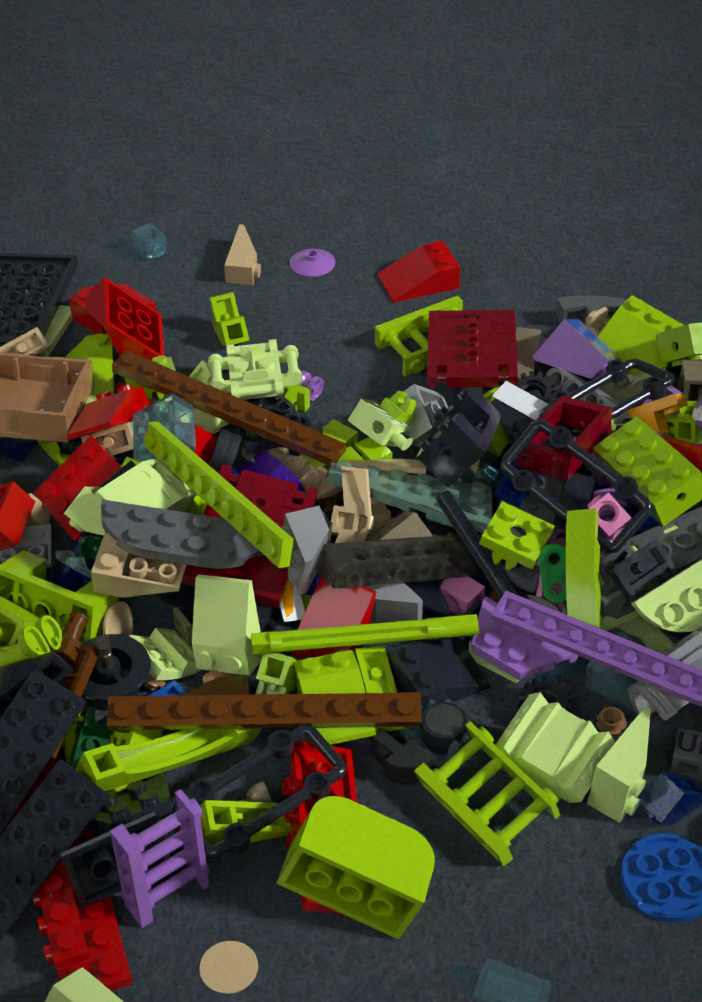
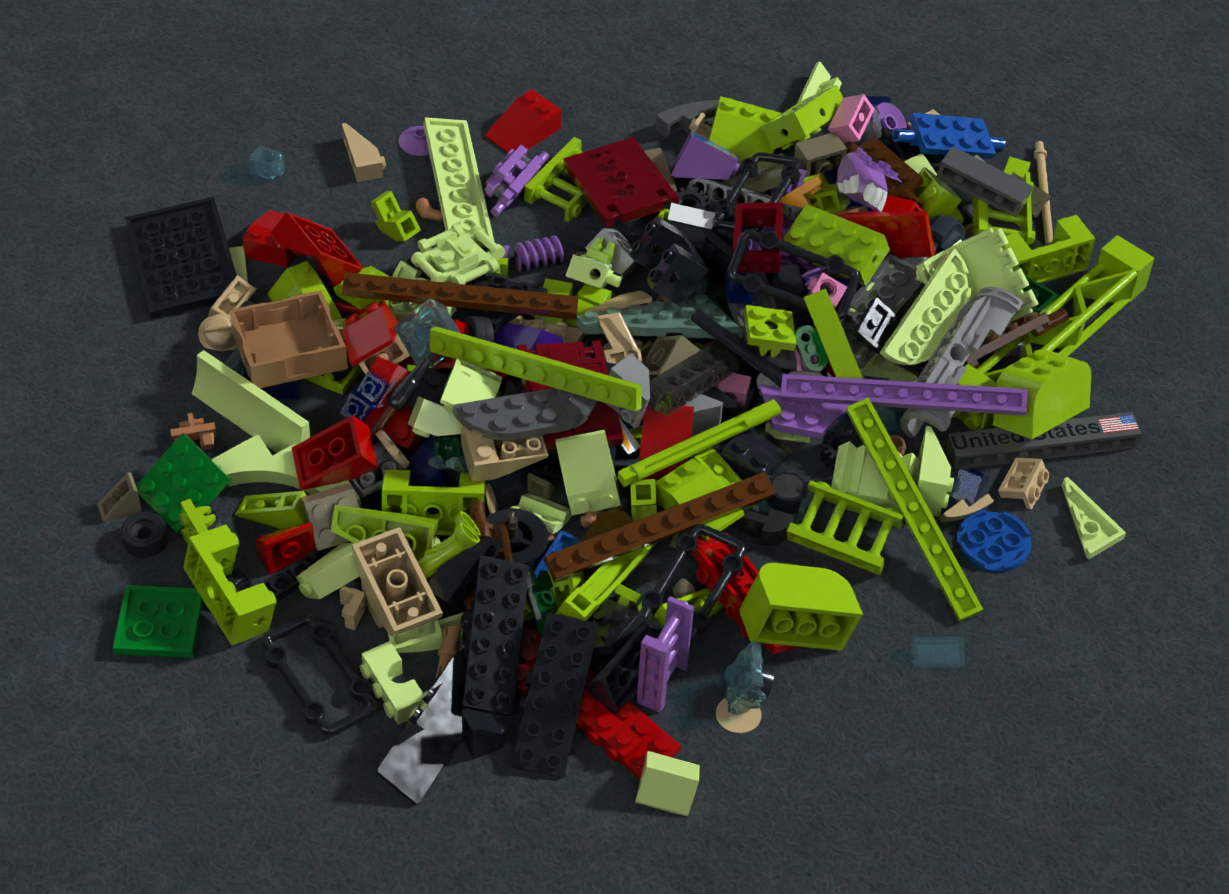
camera: 30 degrees left, 5 degrees up
(51, 533) = (393, 450): none -> tan wheel
(54, 476) = (366, 397): none -> clear blue slope
(92, 478) = (400, 397): none -> black piece
(184, 779) = (628, 597): none -> lime tile
(255, 929) = (748, 680): none -> clear light blue piece
(269, 325) = (426, 211): none -> nougat arm
(318, 303) = (456, 175): none -> yellowish green plate
(344, 393) = (537, 252): none -> medium lavender piece
(367, 311) = (507, 173): none -> medium lavender piece
(574, 807) = (914, 510): none -> lime plate
(641, 825) = (962, 510): none -> tan slope

